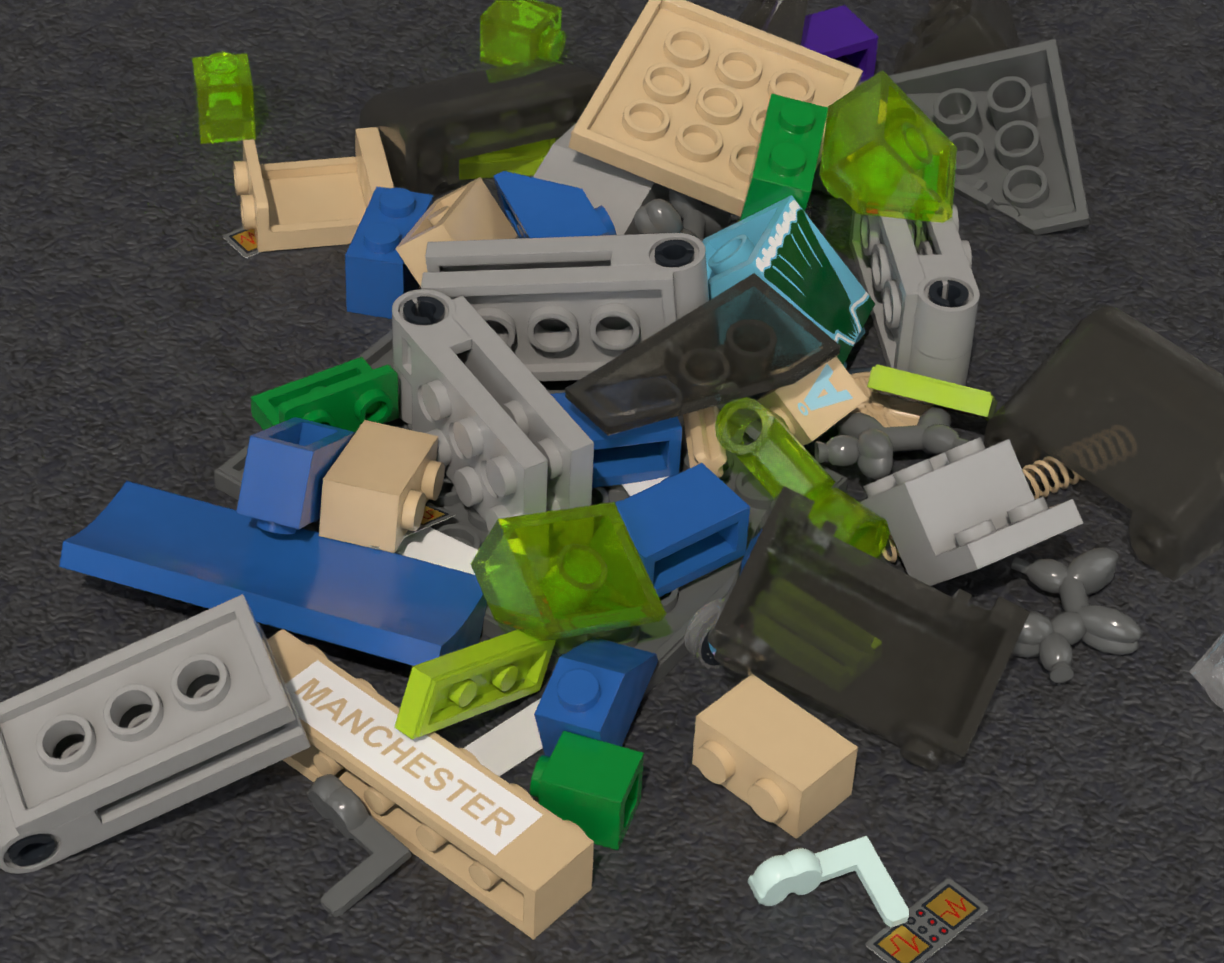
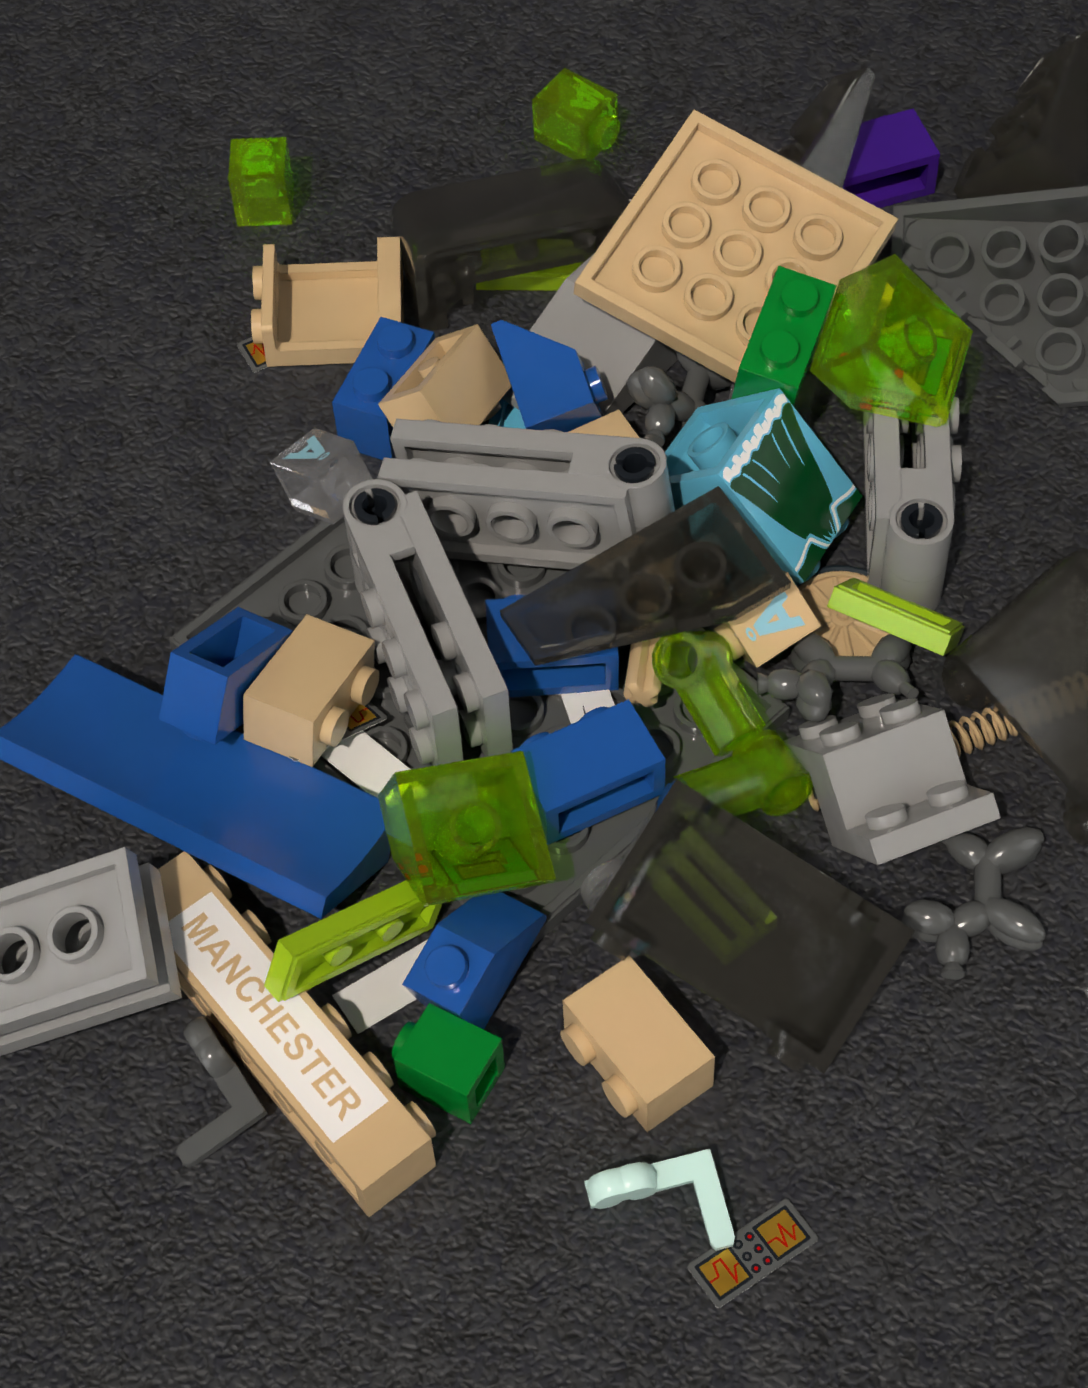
camera: 15 degrees right, 15 degrees up
(333, 397) = (285, 577): green bracket -> none
(344, 322) = (320, 473): none -> clear brick

